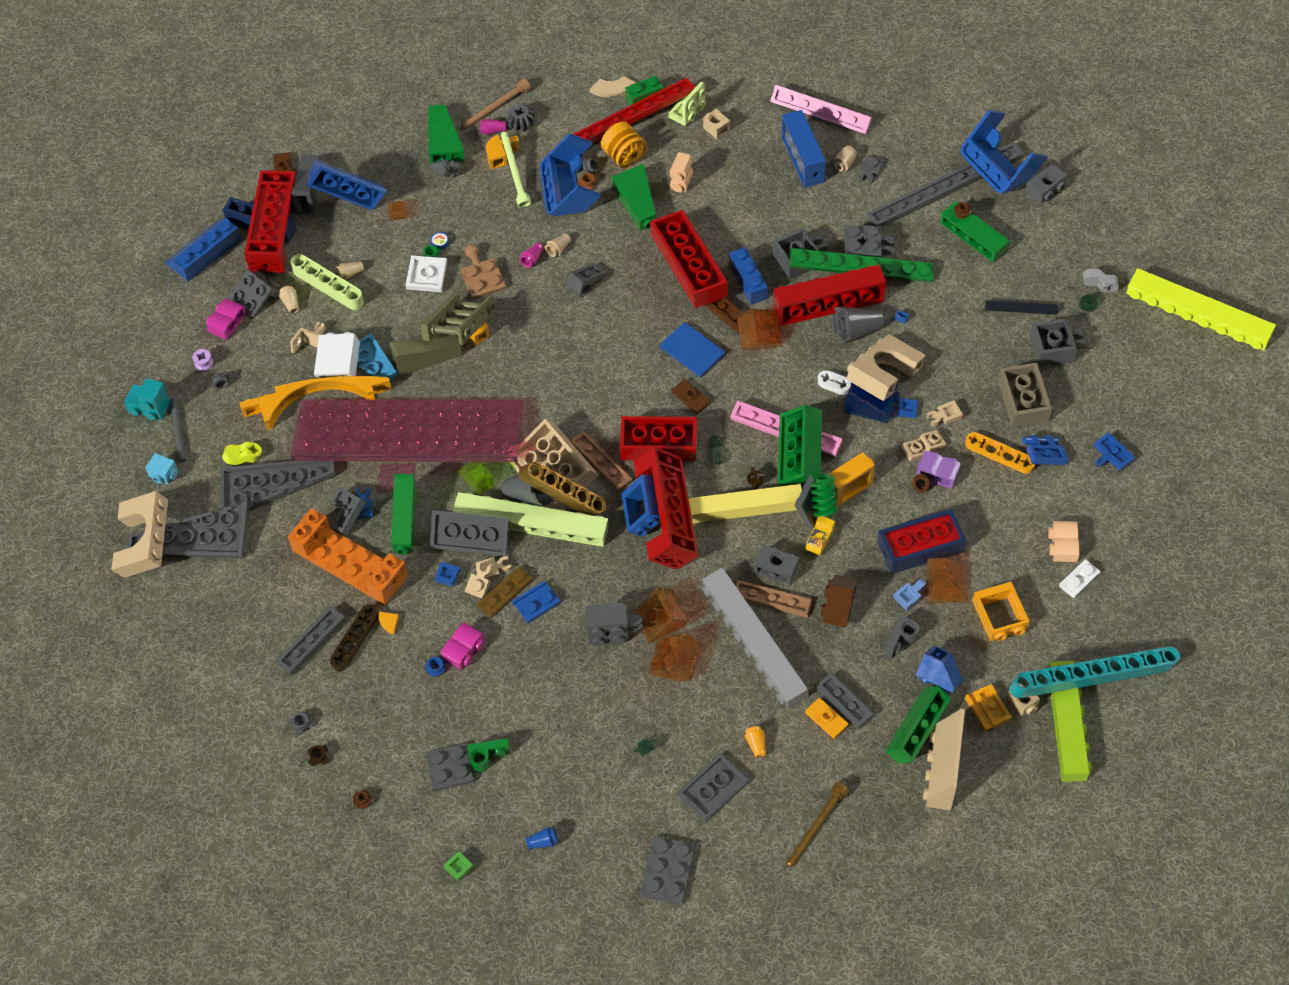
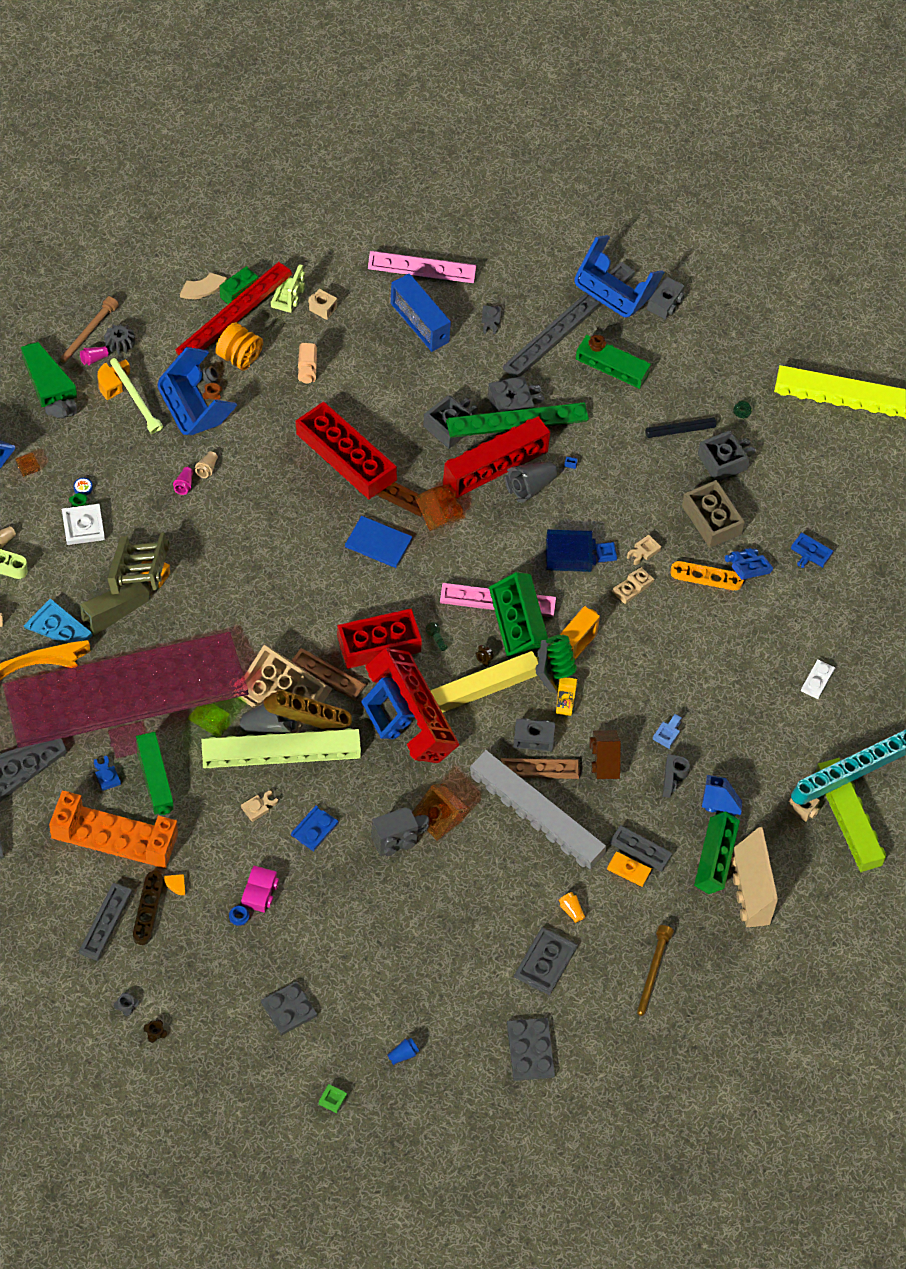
camera: 25 degrees left, 0 degrees up
(337, 355) = (24, 630): white brick -> none
(350, 508) = (97, 781): dark grey plate -> none
(365, 803) = (215, 1065): reddish brown plate -> none
(447, 574) = (217, 822): blue plate -> none
(469, 532) = (226, 776): dark grey plate -> none
(478, 583) = (252, 825): tan plate -> none
(481, 277) = (140, 515): medium nougat plate -> none
(484, 750) = (319, 983): green plate -> none
(504, 592) = (280, 826): pearl gold plate -> none
(582, 279) = (246, 494): dark grey plate -> none
(635, 195) = (268, 397): green slope -> none
(645, 746) = (469, 939): clear green plate -> none
(675, 658) = (469, 848): clear orange slope -> none
(690, 396) = (393, 589): reddish brown plate -> none
(748, 275) = (409, 454): blue brick -> none
(834, 382) = (528, 543): white beam -> none
(844, 158) = (462, 313): tan brick -> none
(887, 351) = (573, 500): tan arch -> none
(917, 487) = (643, 628): reddish brown plate -> none
(923, 538) = (663, 679): brick -> none
(939, 469) = (655, 605): medium lavender brick -> none
(945, 581) = (696, 712): clear orange slope -> none
(988, 708) = (774, 820): light orange plate -> none
(996, 594) = (748, 711): light orange window -> none
(1064, 541) = (793, 647): light nougat brick -> none
(1097, 278) = (751, 385): light grey piece -> none

